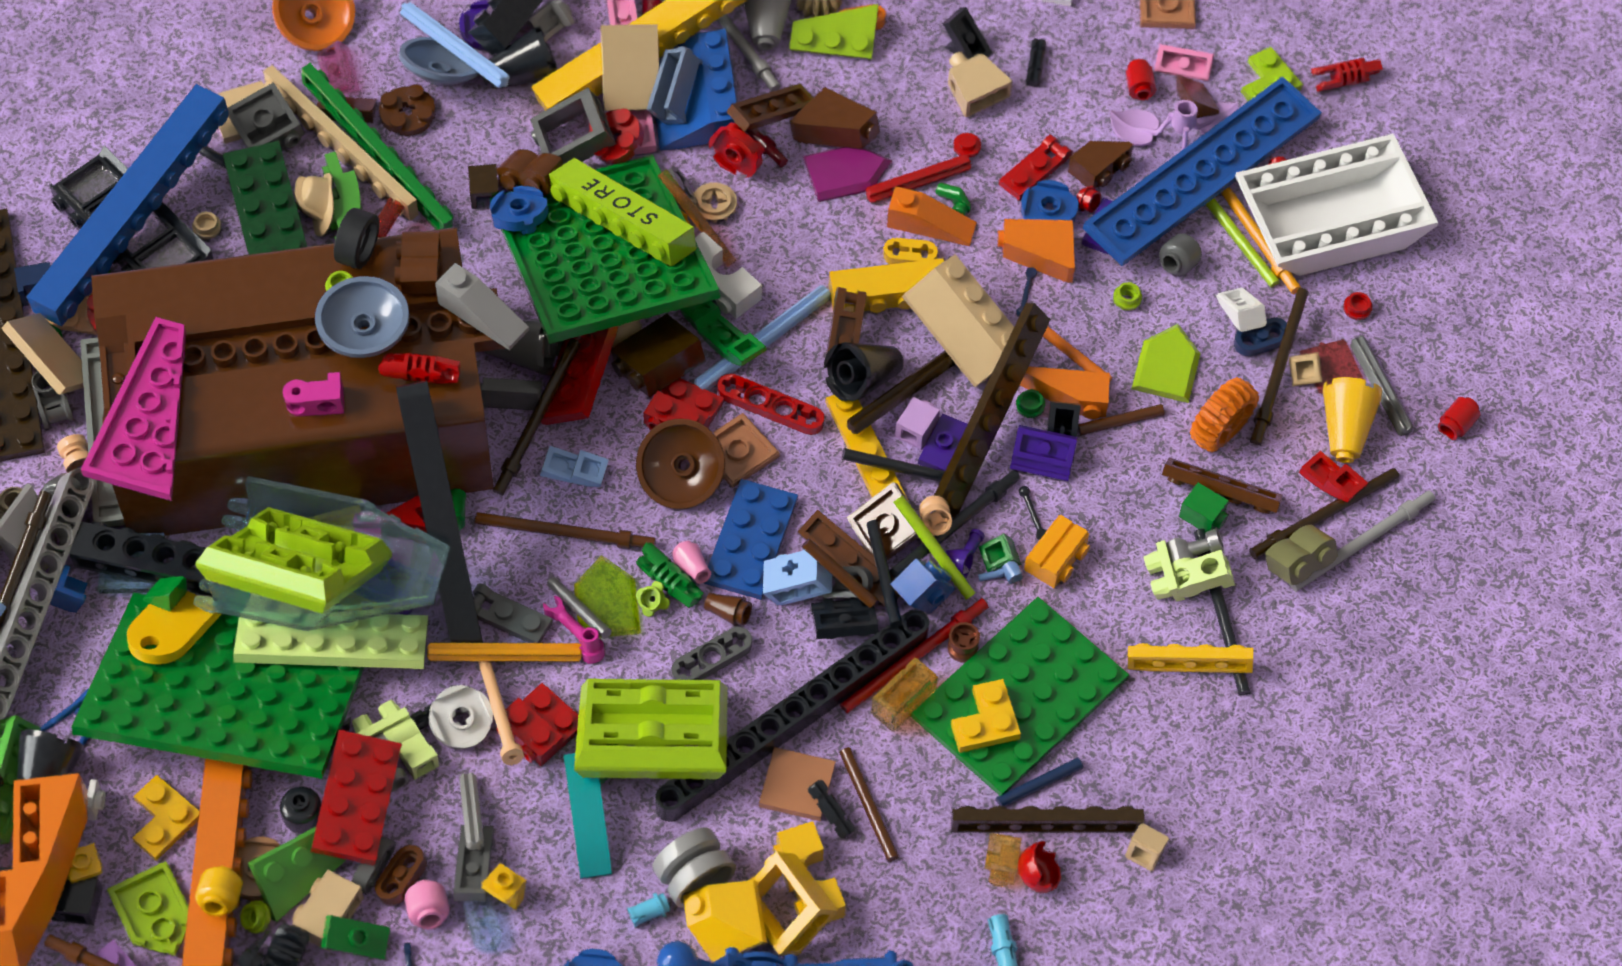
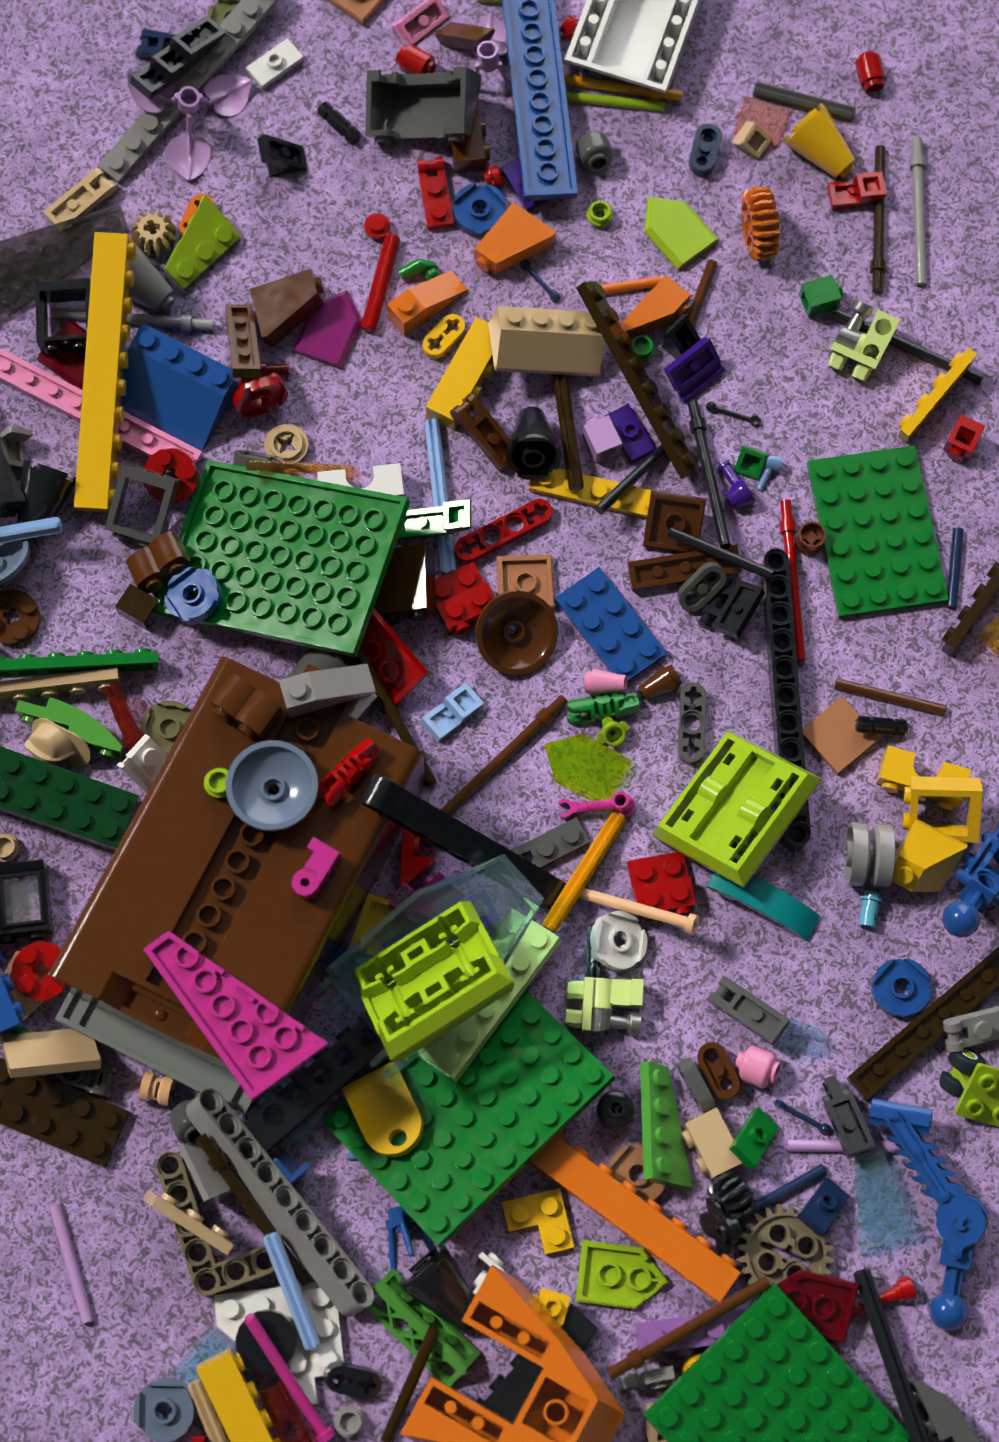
camera: 55 degrees left, 15 degrees up
(167, 592) = (354, 1096): green slope -> none
(218, 891) = (657, 1217): yellow head -> none
(255, 916) = (678, 1207): lime plate -> none
(356, 238) = (190, 741): black tyre -> none
(356, 797) = (643, 1063): red plate -> none
(471, 811) = (705, 984): light grey axle -> none
(505, 886) = (788, 1000): yellow bracket -> none
(578, 607) = (583, 791): flat silver bar -> none
(623, 212) = (265, 519): lime brick -> none
(628, 65) = (124, 419): tan tile -> none
(673, 85) = (165, 398): sand blue window -> none
(795, 578) = (690, 607): light blue brick -> none
(839, 573) = (706, 584): reddish brown bar -> none
(904, 694) = (827, 610): clear yellow brick -> none
(924, 585) = (754, 532): blue brick -> none
(934, 547) = (725, 502): lime bar -> none
(938, 521) = (699, 482): light nougat wheel -> none
(977, 83) = (326, 178): tan torso -> none
(992, 725) = (894, 563): yellow plate -> none
(1057, 551) = (782, 420): light orange brick -> none
(1097, 99) = (421, 105): none -> dark grey windscreen
(1175, 701) = (967, 431): none -> red brick
(1233, 489) = (809, 268): reddish brown plate -> none
(1243, 309) = (688, 148): white slope -> none
(1264, 414) = (738, 151): dark brown bar -> none
(1301, 554) = (908, 259): olive brick -> none
(1358, 306) = (727, 66): red plate -> none

